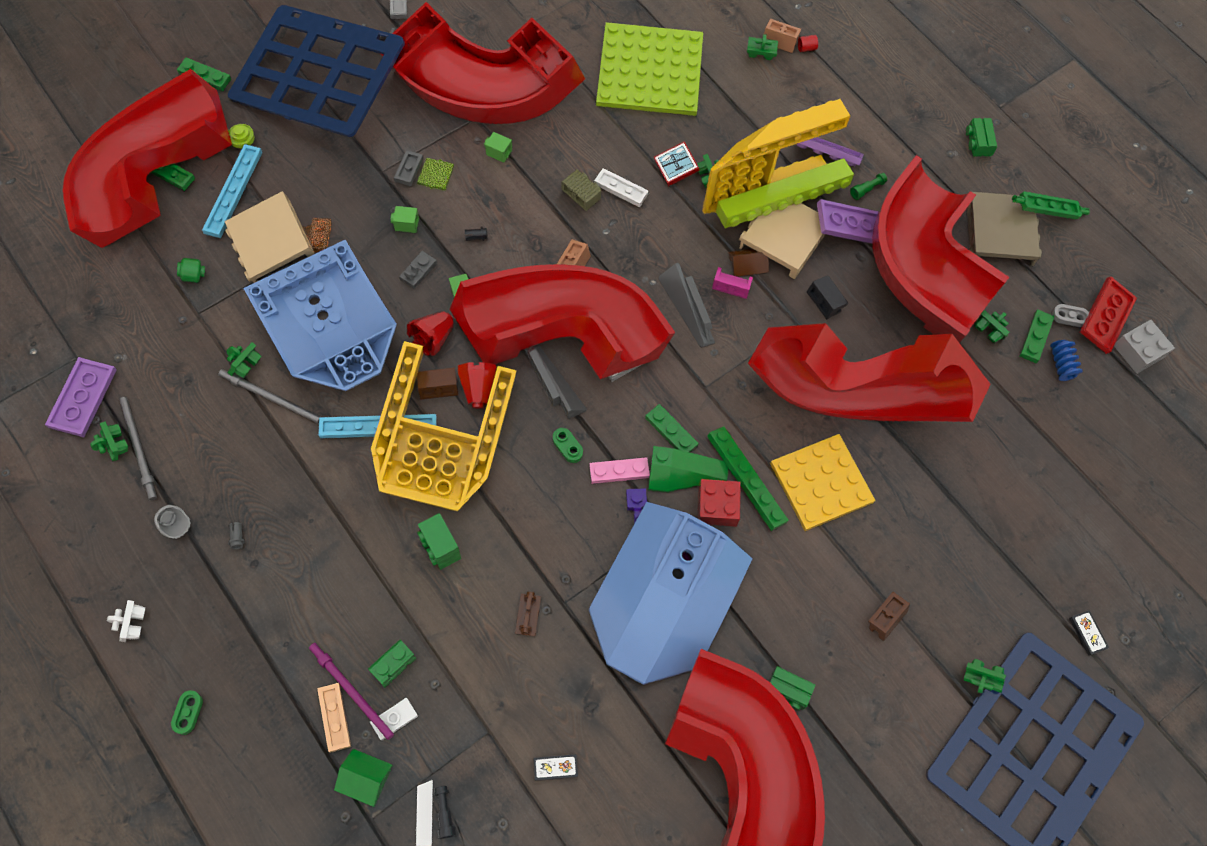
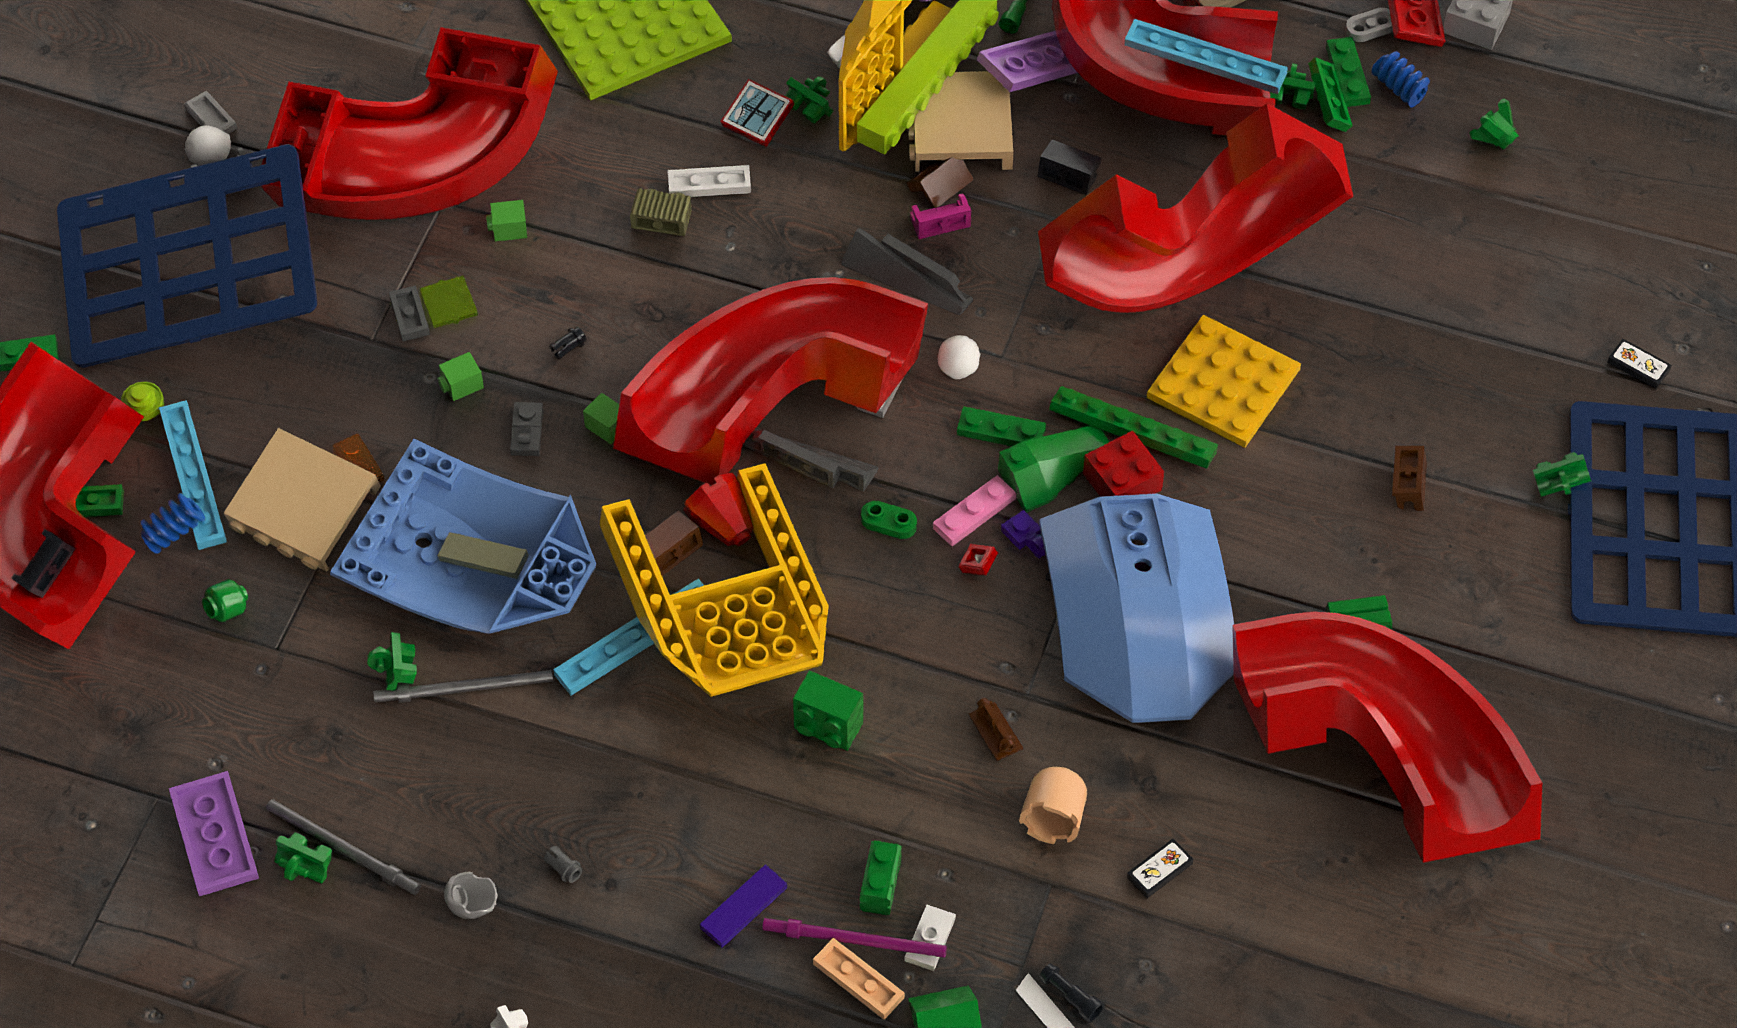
camera: 30 degrees left, 10 degrees down
(105, 196) = (45, 564): none -> black hinge
(195, 210) = (171, 523): none -> blue piece
(310, 627) = (743, 906): none -> dark purple tile
(332, 328) = (483, 555): none -> olive tile
(381, 17) = (207, 145): none -> white hair
(431, 331) = (610, 483): red cone -> none
(522, 686) = (1054, 805): none -> light nougat cylinder
(575, 254) = (718, 291): nougat hinge -> none
(597, 502) = (978, 559): none -> red tile
(679, 372) = (958, 357): none -> white hair
(948, 279) = (1206, 56): none -> medium azure plate
(1014, 344) = (1330, 94): none -> green plate
(1104, 425) = (1496, 127): none -> green rock

